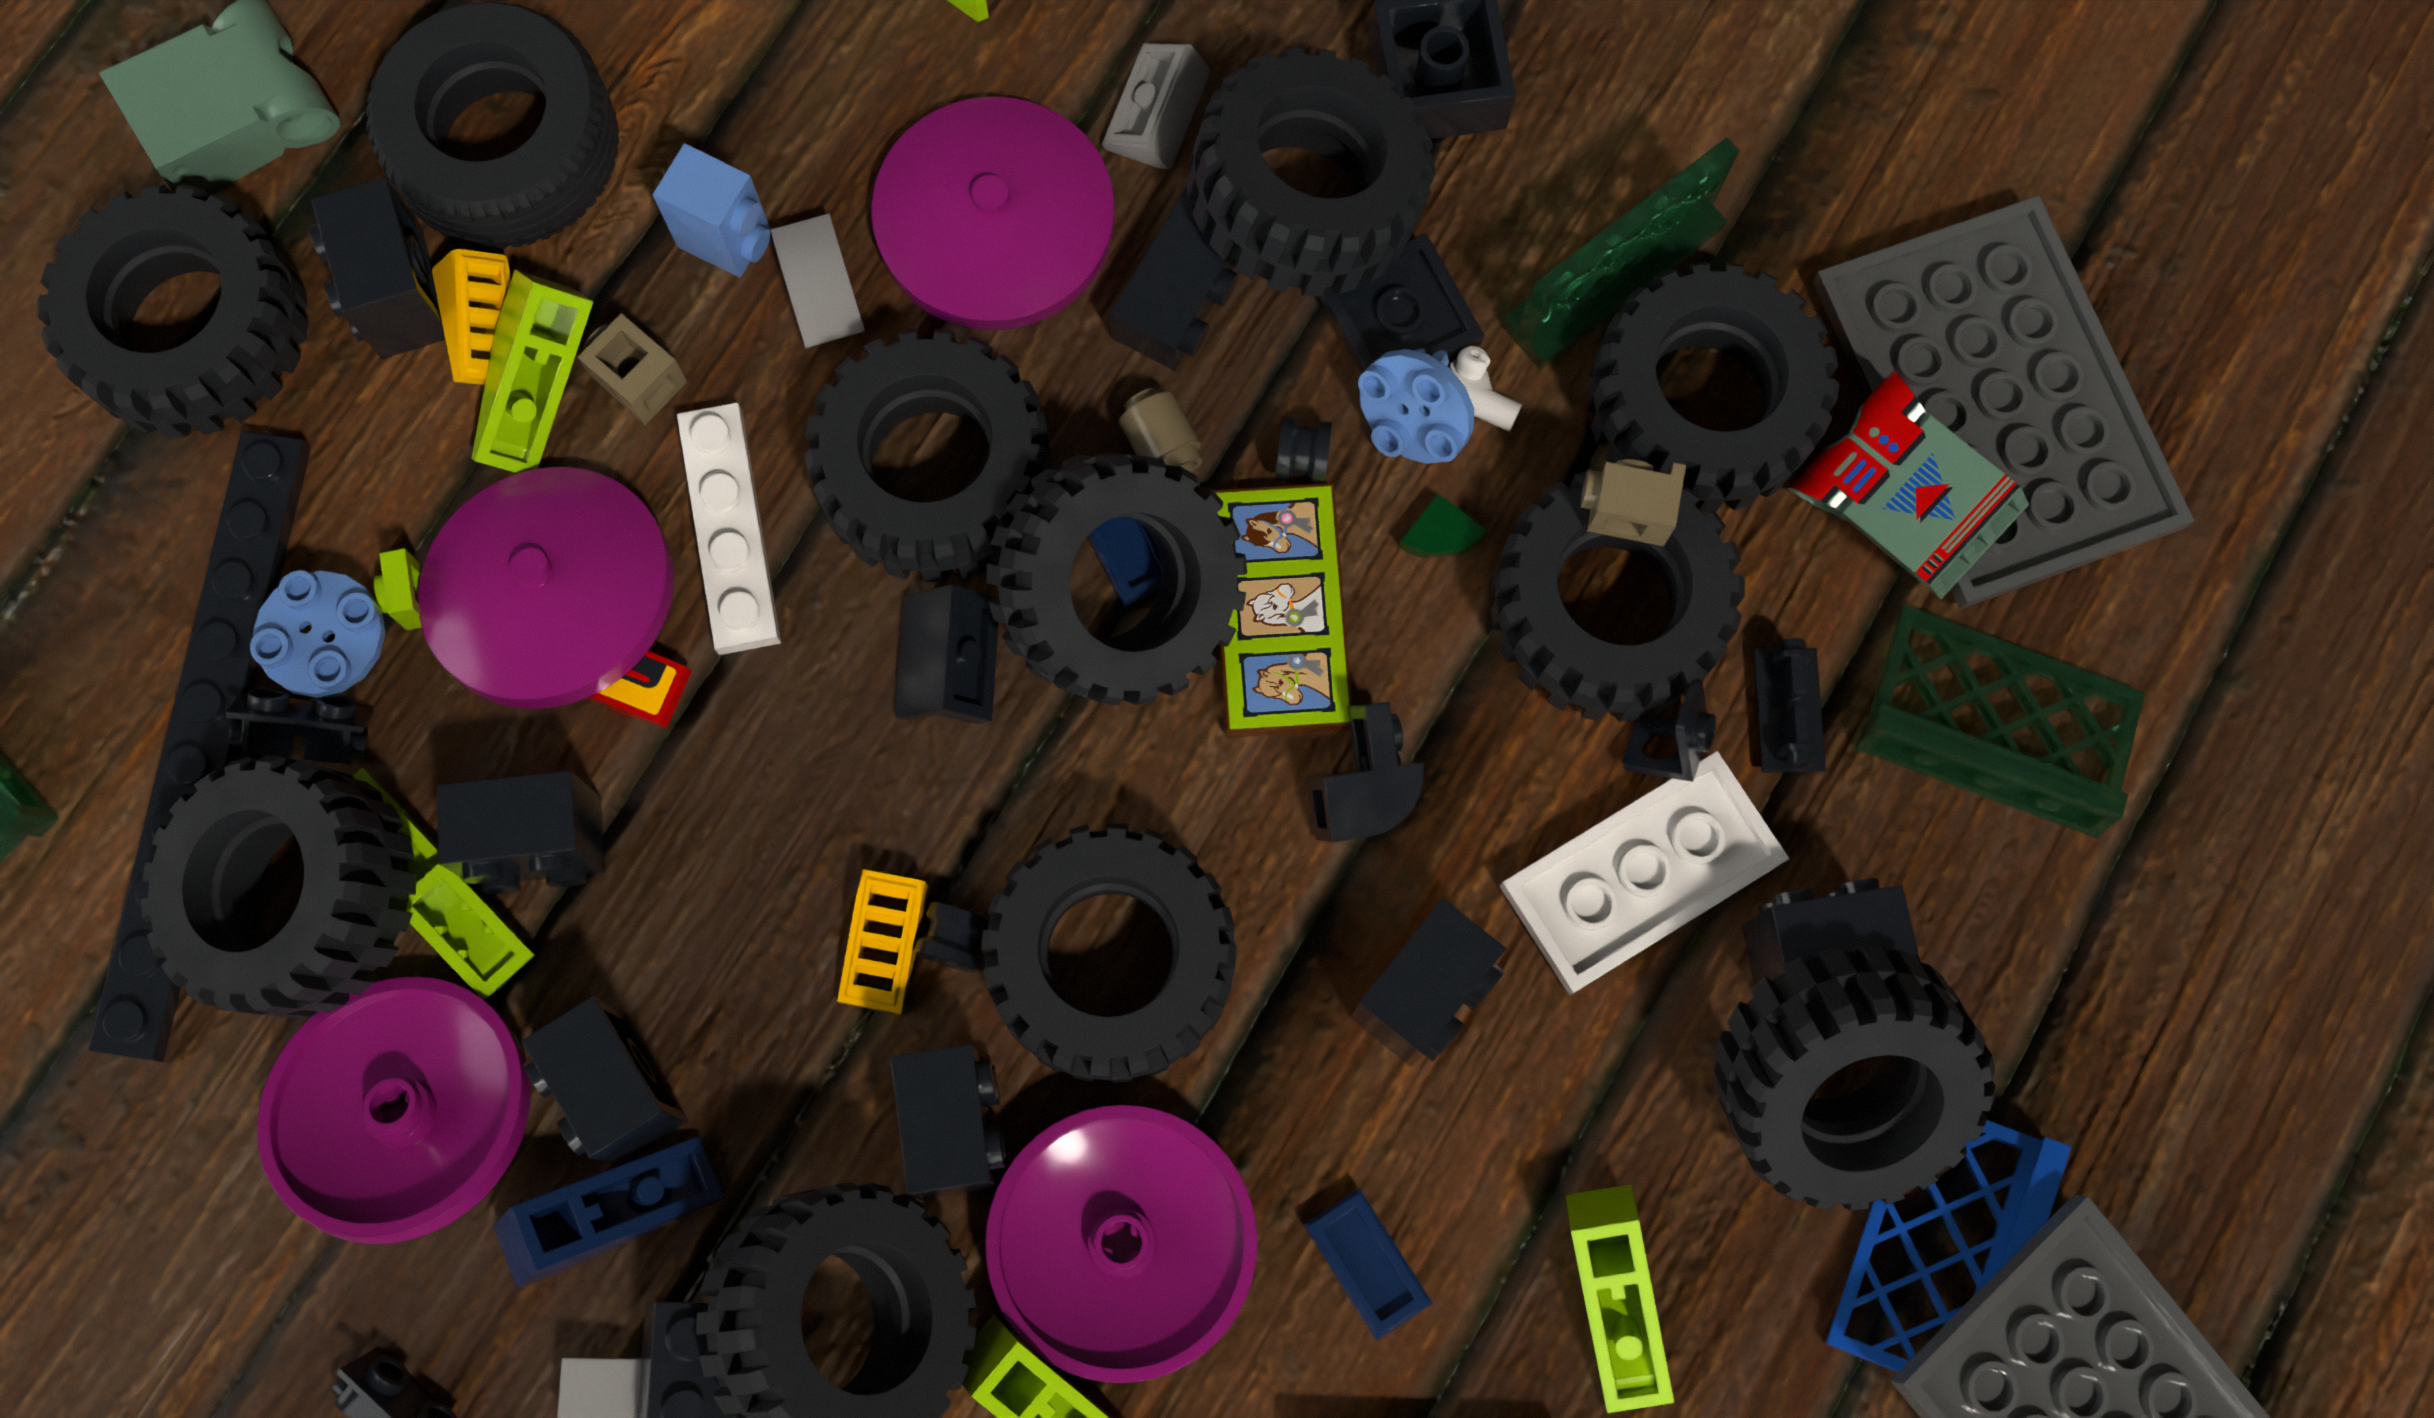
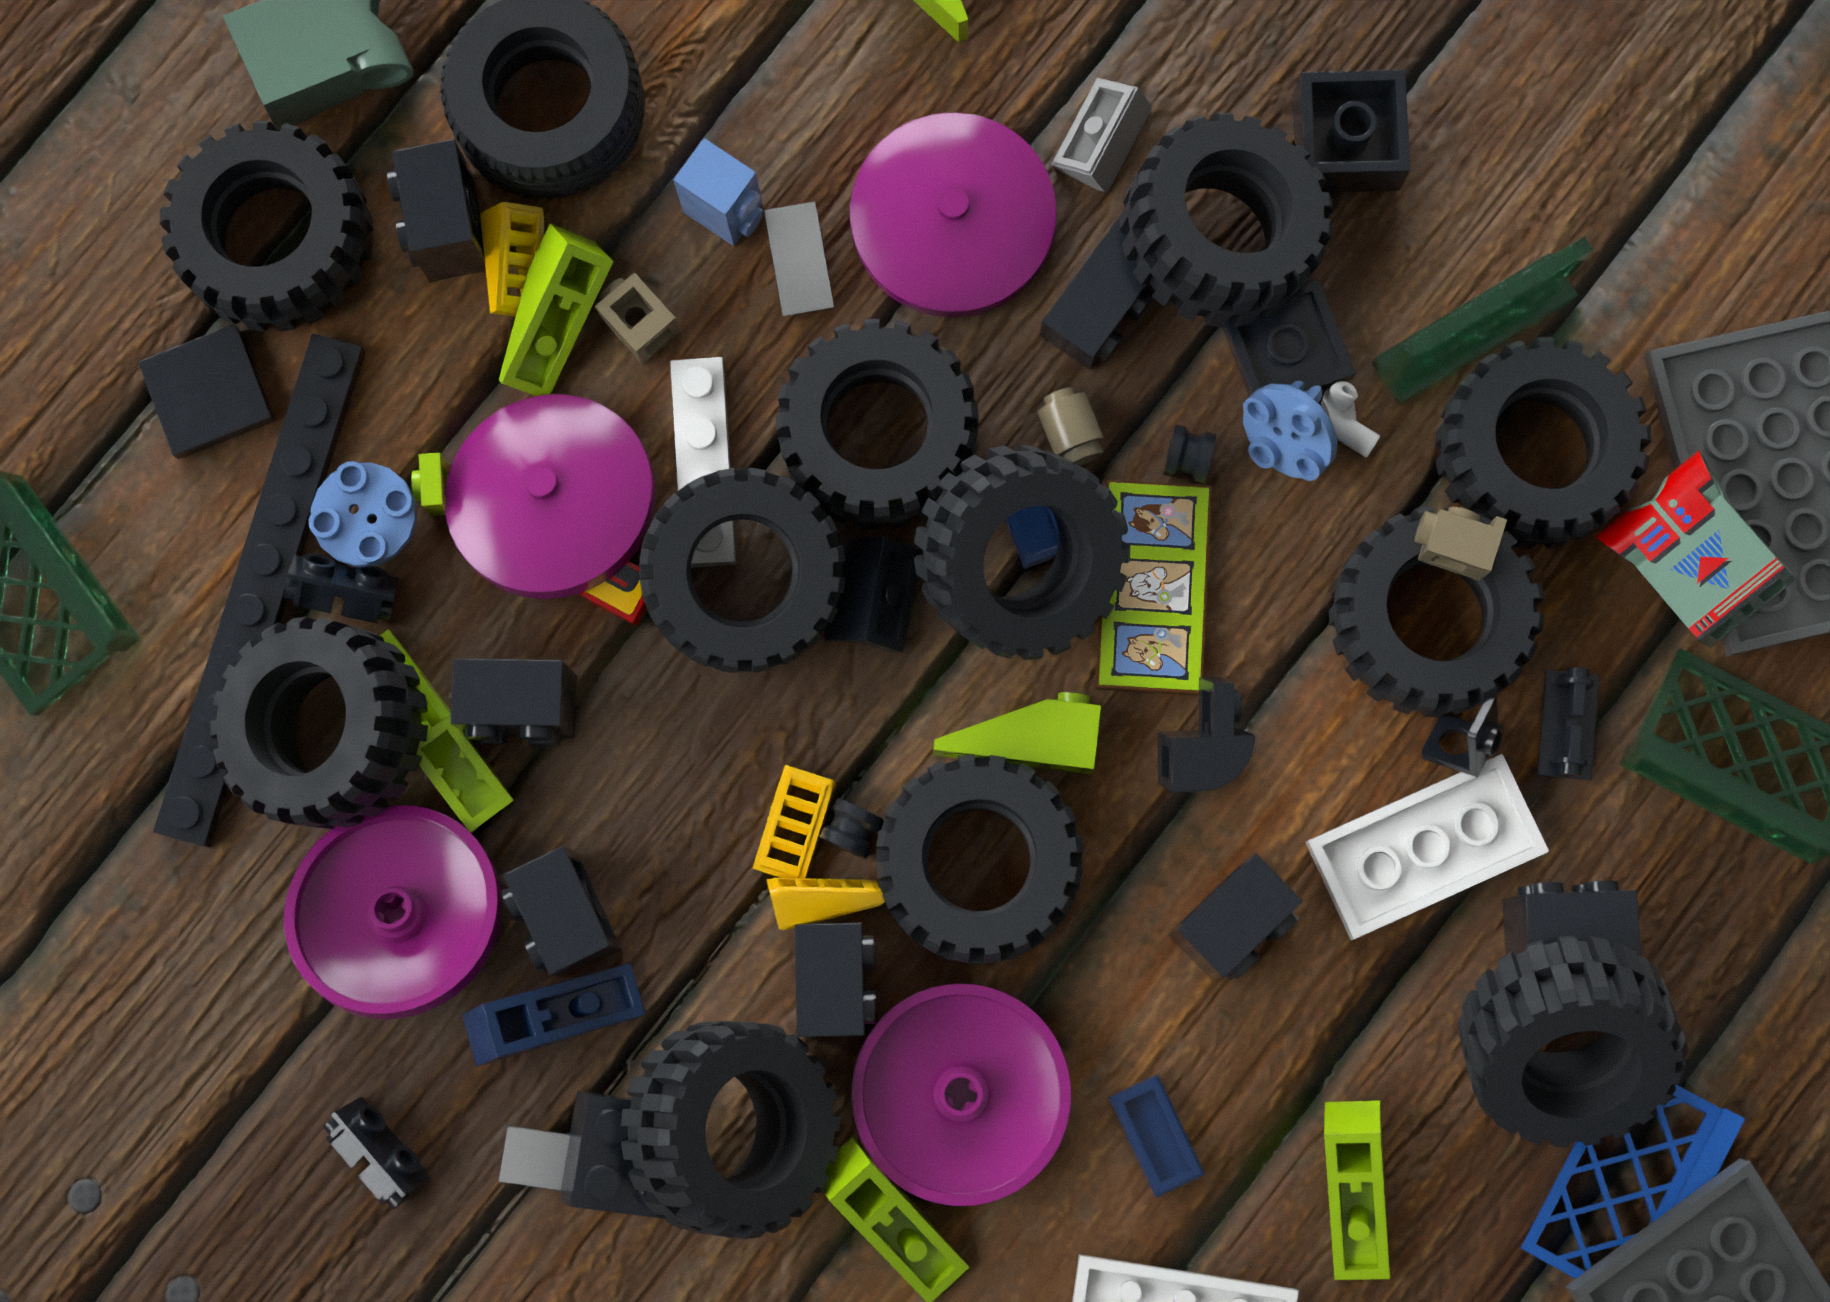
camera: 15 degrees right, 5 degrees up
(118, 515) = (206, 391): none -> black tile
(762, 555) = (814, 580): none -> black tyre
(922, 1025) = (815, 900): none -> yellow slope
(1173, 794) = (1041, 736): none -> lime slope
(1442, 531) = (1298, 537): dark green tile -> none

